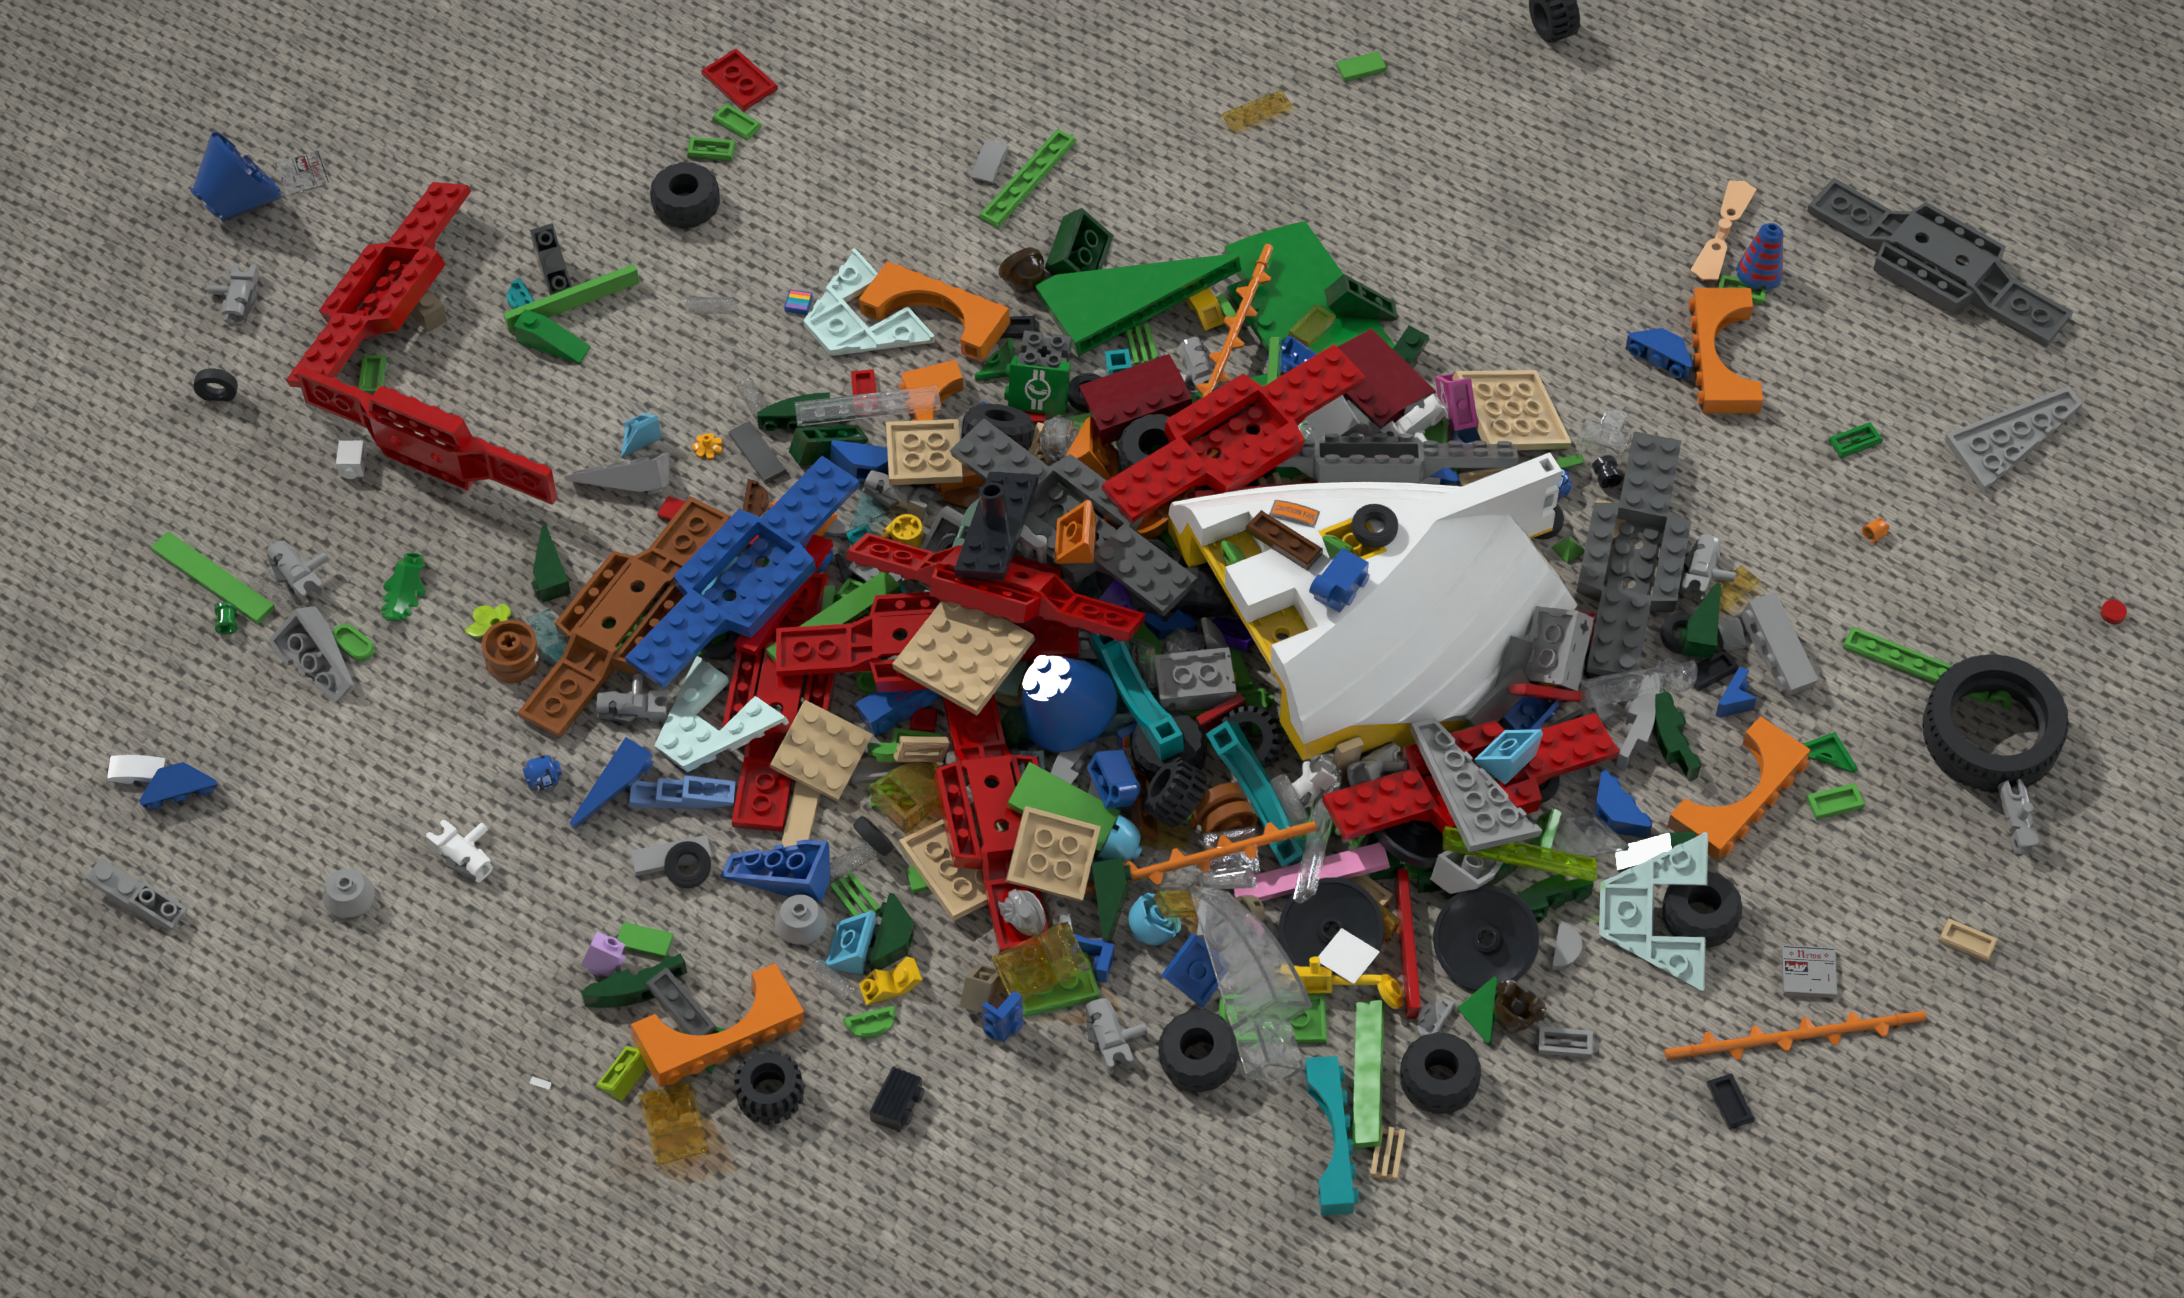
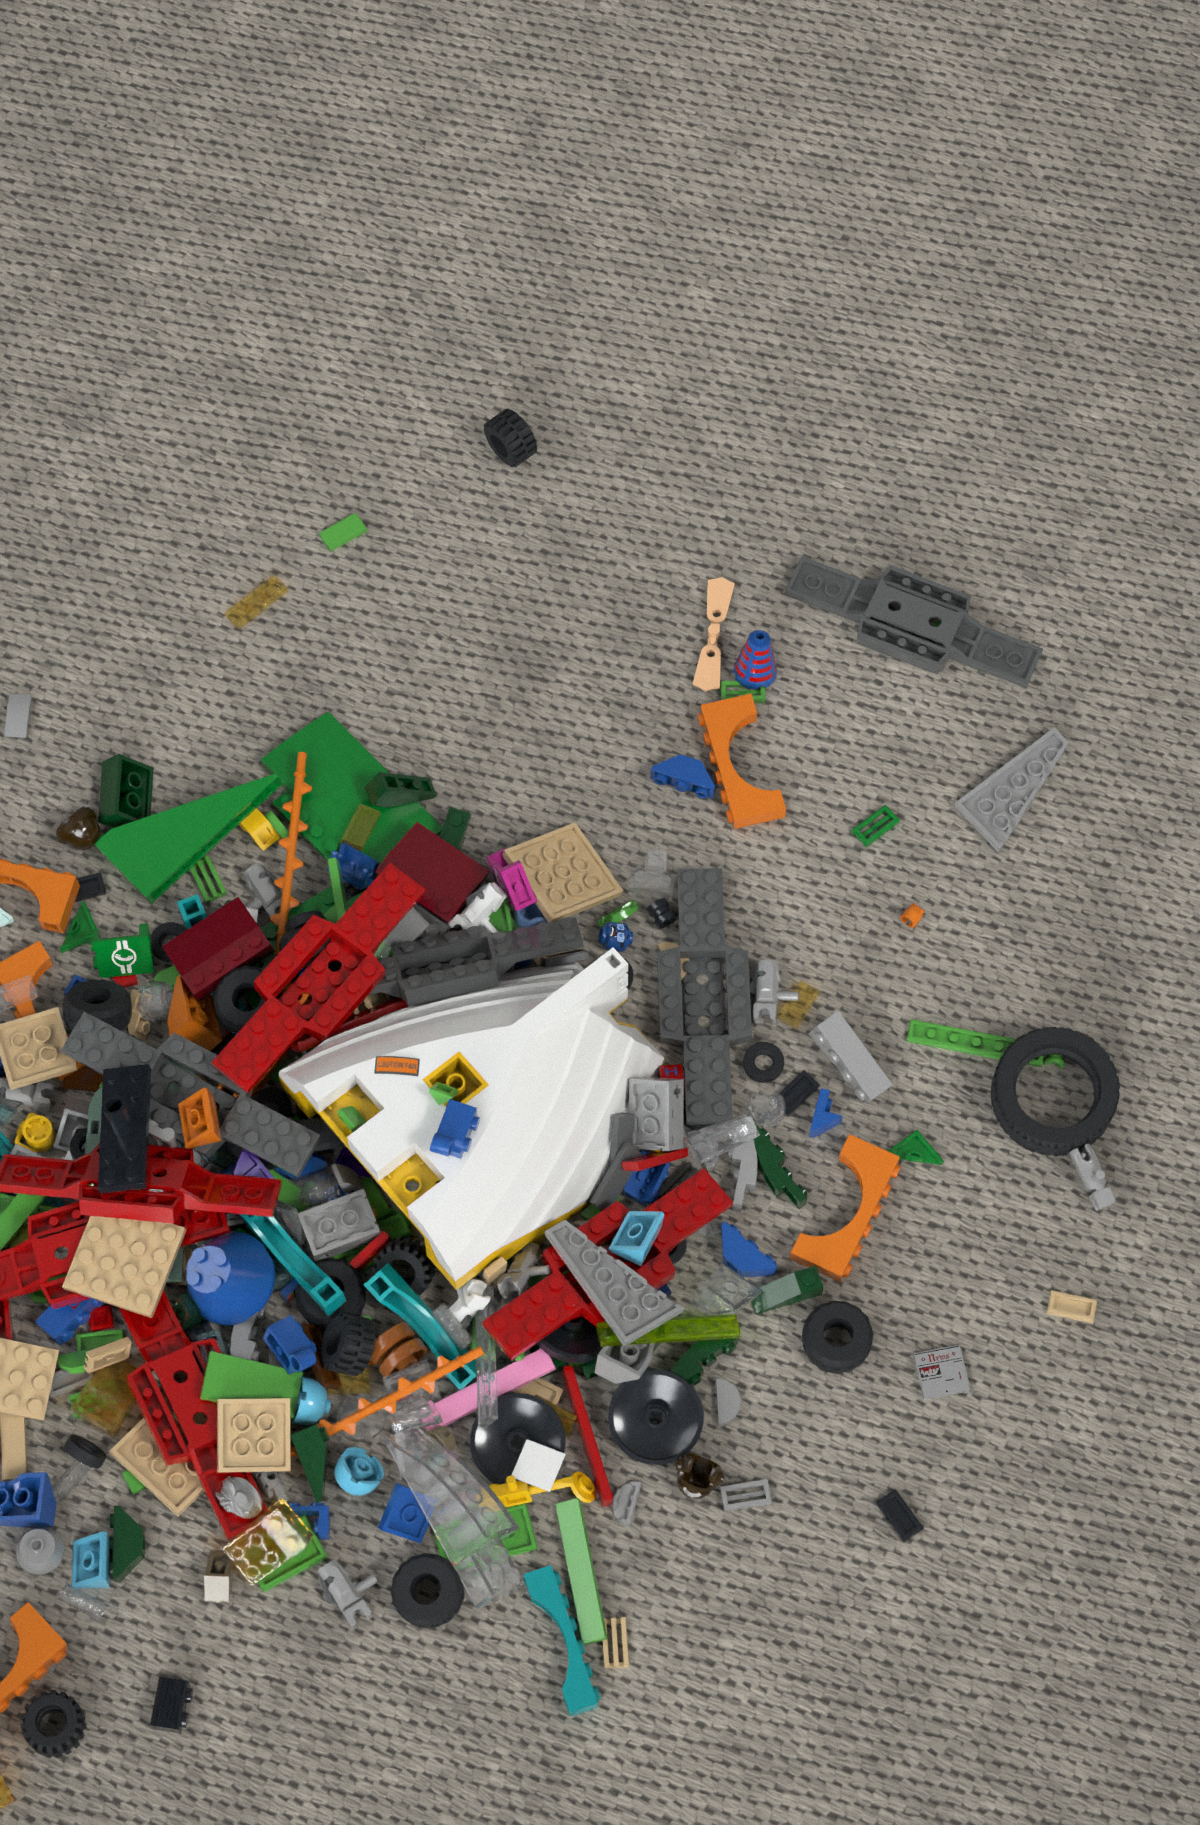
camera: 15 degrees left, 10 degrees up
(844, 882) = (68, 1501): bright green tile -> none
(871, 1023) = (129, 1634): bright green tile -> none
(885, 985) = (136, 1591): yellow slope -> none
(1005, 1020) = (251, 1603): blue bracket -> none
(1027, 178) = (58, 725): bright green tile -> none
(1044, 351) = (112, 909): dark grey brick -> none
(1175, 903) = (373, 1450): clear yellow tile -> none
(1284, 540) = (394, 1097): reddish brown tile -> none
(1374, 539) = (472, 1077): black tyre -> none
(1435, 1094) = (644, 1579): black tyre -> none
(1479, 1009) = (664, 1484): green tile -> none
(1548, 823) = (685, 1293): bright green tile -> none
(1568, 549) = (643, 999): bright green slope -> none
(1629, 910) = (774, 1355): light aqua wing -> none
(1701, 631) = (780, 1060): dark green slope -> none
(1731, 635) = (805, 1054): light grey slope -> none
(1784, 1039) = (933, 1444): orange plant -> none
(1835, 801) = (931, 1198): bright green tile -> none
(2113, 611) = (1135, 948): red tile -> none

